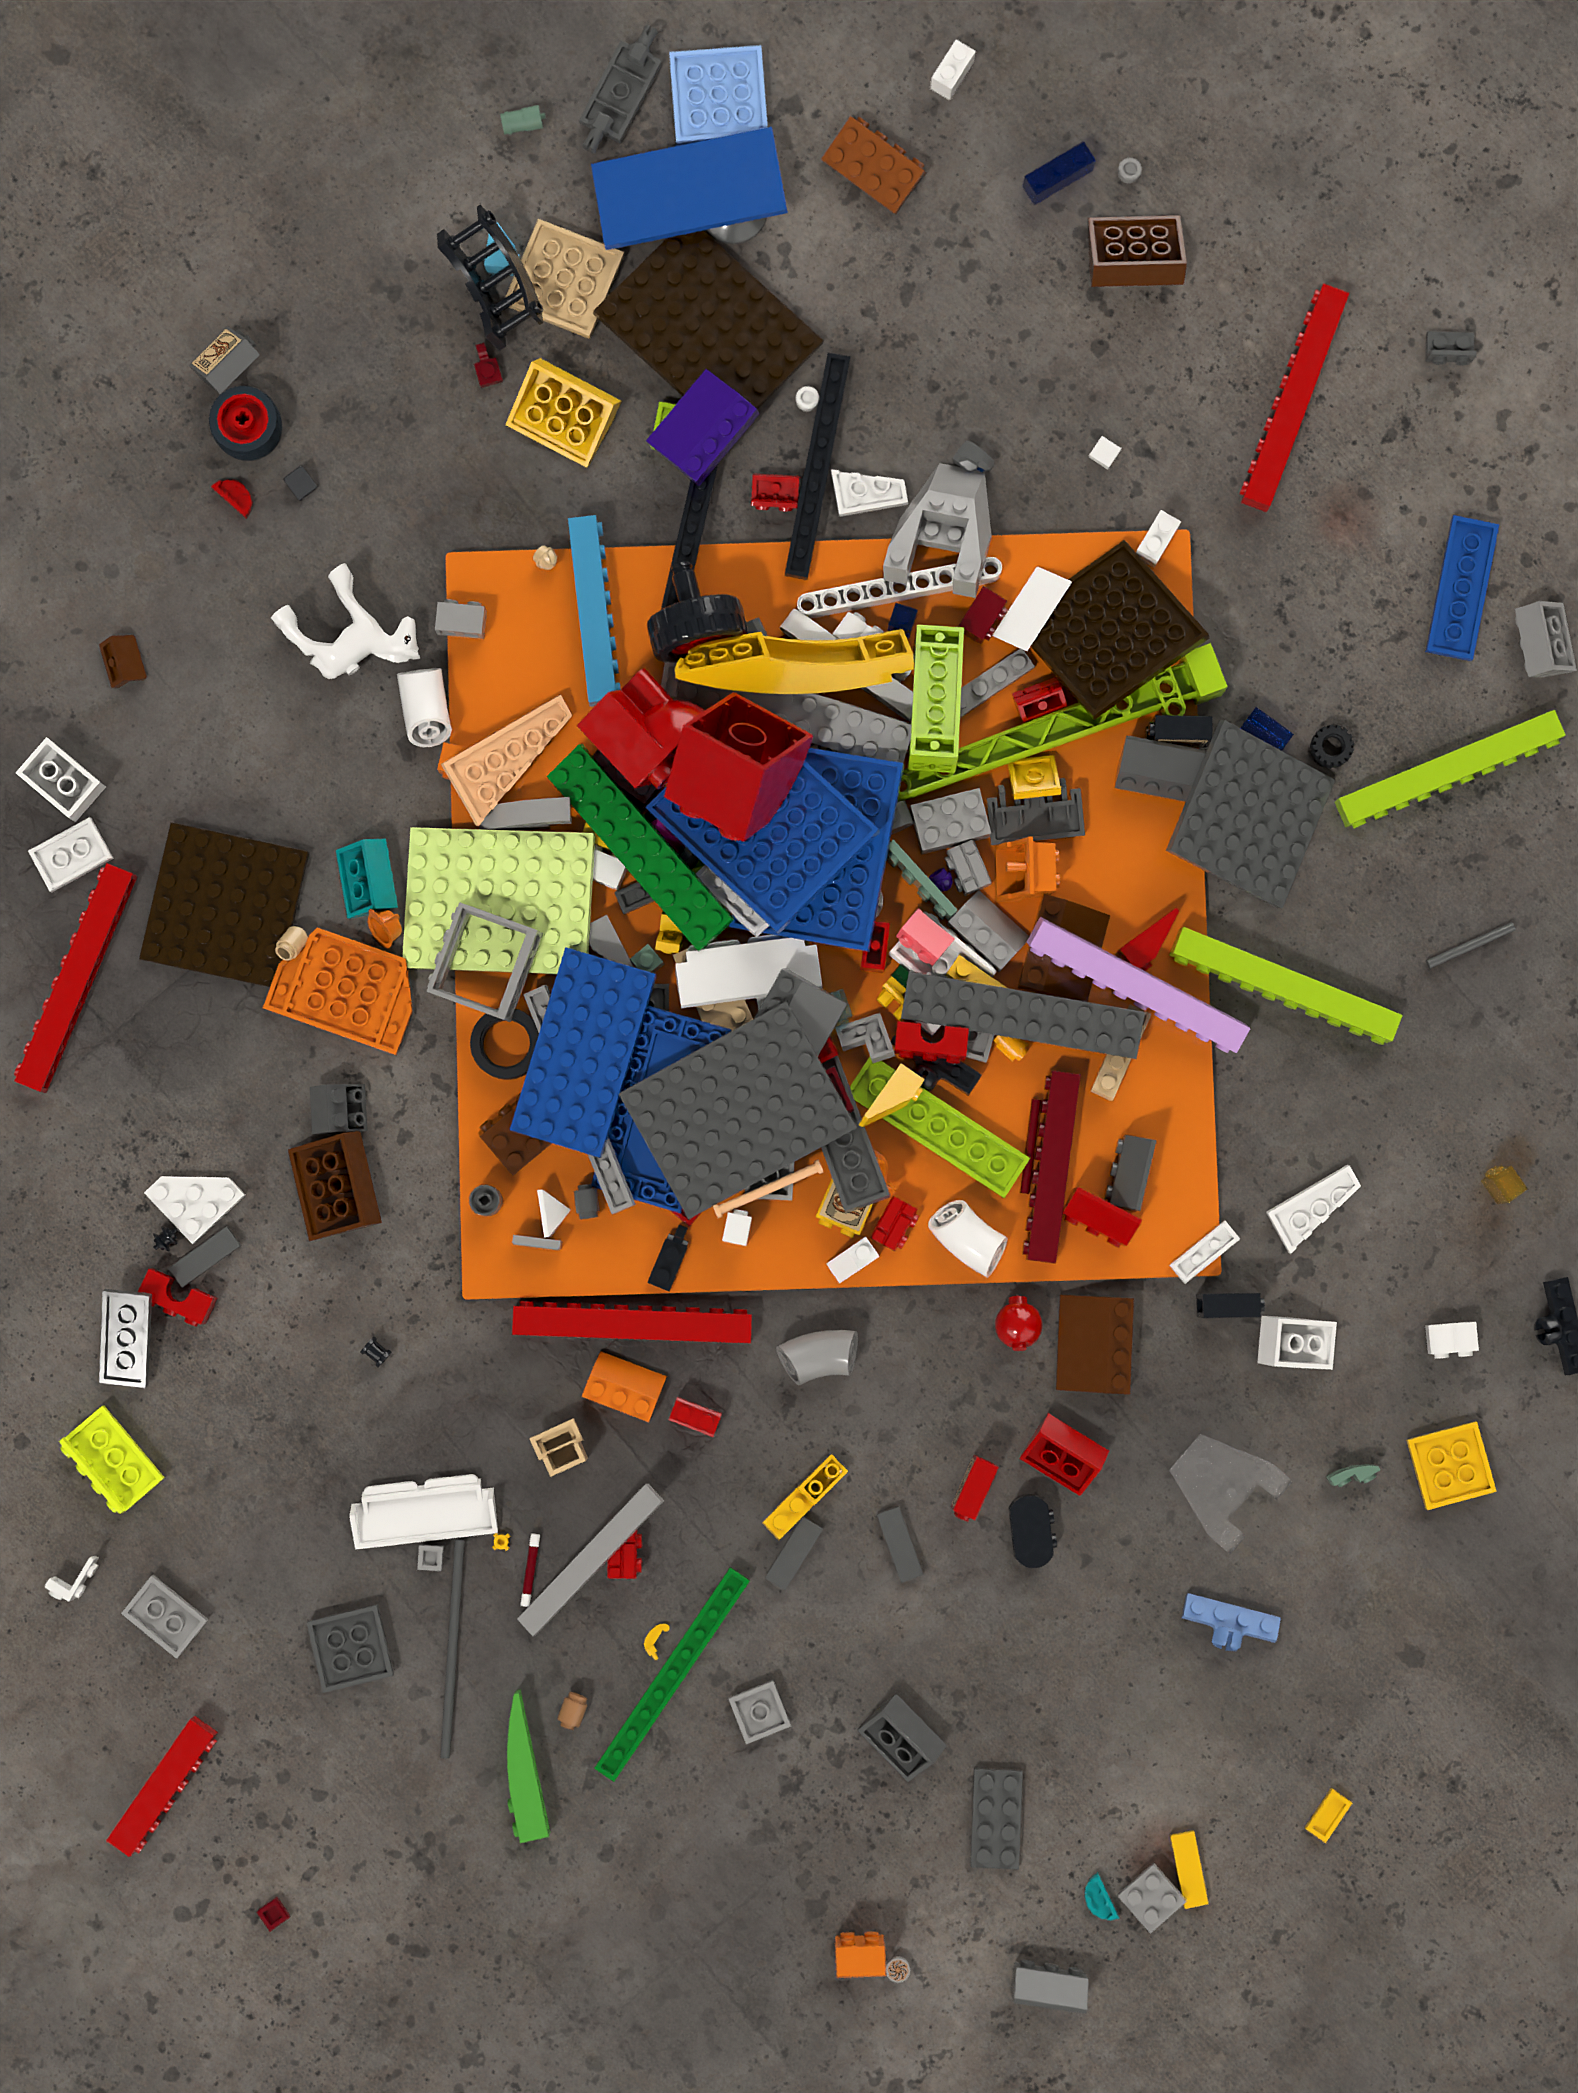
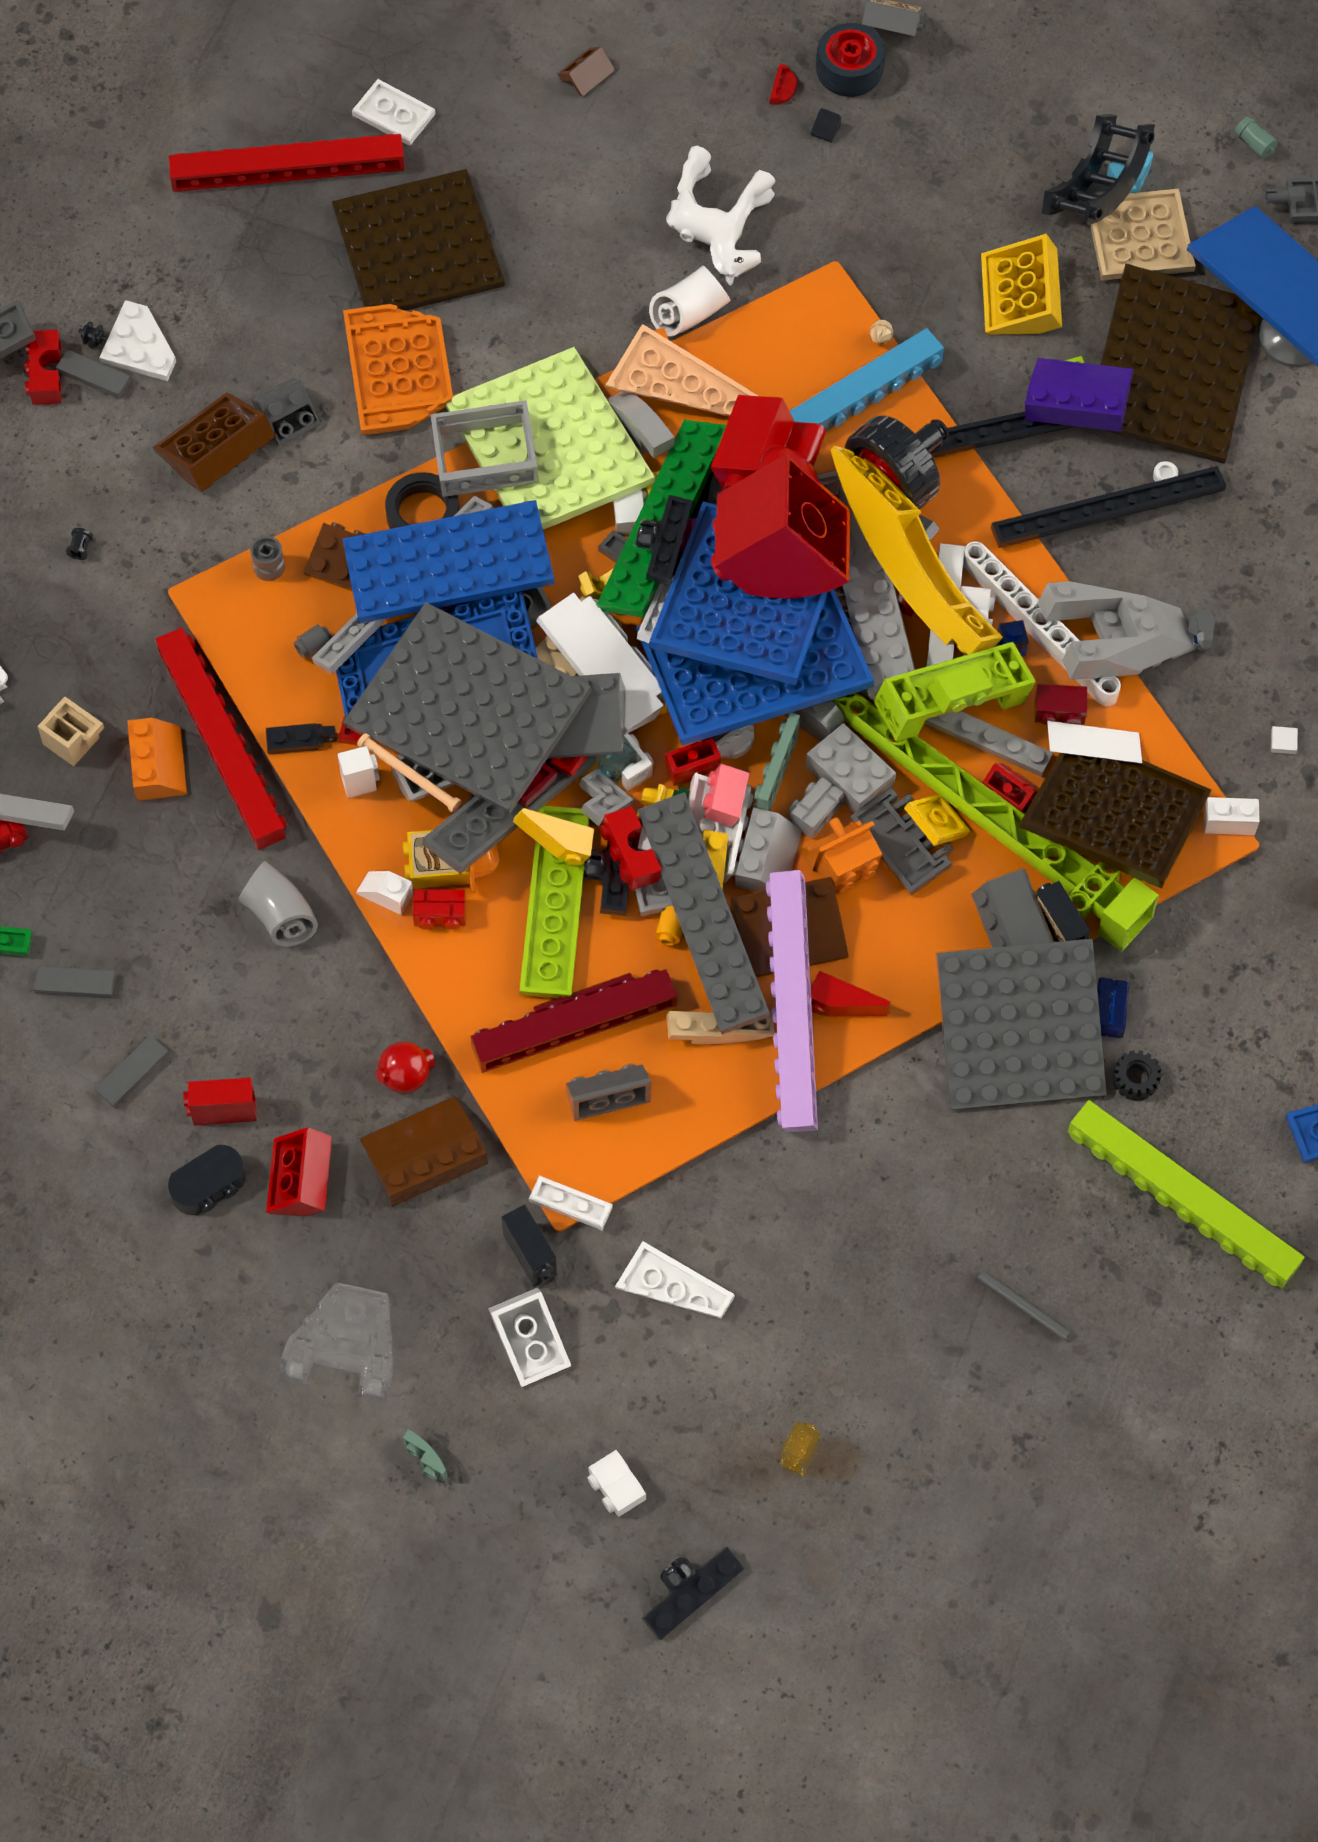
camera: 60 degrees right, 20 degrees down
(60, 779) = (453, 70): white brick -> none
(291, 943) = (413, 303): tan brick -> none
(366, 877) = (508, 336): teal slope -> none
(384, 926) = (474, 367): orange piece -> none
(460, 619) = (783, 294): light grey brick -> none
(487, 369) = (1020, 216): dark red plate -> none
(537, 1242) = (252, 619): light grey tile -> none
(552, 1212) = (285, 618): white slope -> none
(606, 941) = (564, 543): light grey slope -> none
(647, 960) = (566, 582): sand green brick -> none
(675, 861) = (664, 538): none -> black plate
(695, 1416) = (160, 830): red brick -> none
(775, 492) = (1061, 483): red bracket -> none
(804, 1497) = (133, 963): yellow slope -> none
(856, 998) = (637, 772): none -> white bracket
(864, 493) = (1110, 559): white wing -> none
(941, 879) = (790, 790): dark purple plate -> none
(952, 696) = (961, 688): none -> lime brick
(968, 1237) = (461, 978): white brick -> none
(1100, 1217) = (548, 1083): red slope -> none
(1230, 1621) = (213, 1413): medium blue plate -> none
(1285, 985) = (877, 1146): lime brick -> none
(1328, 1815) = (61, 1611): yellow tile -> none
(1451, 1465) = (486, 1550): yellow plate -> none

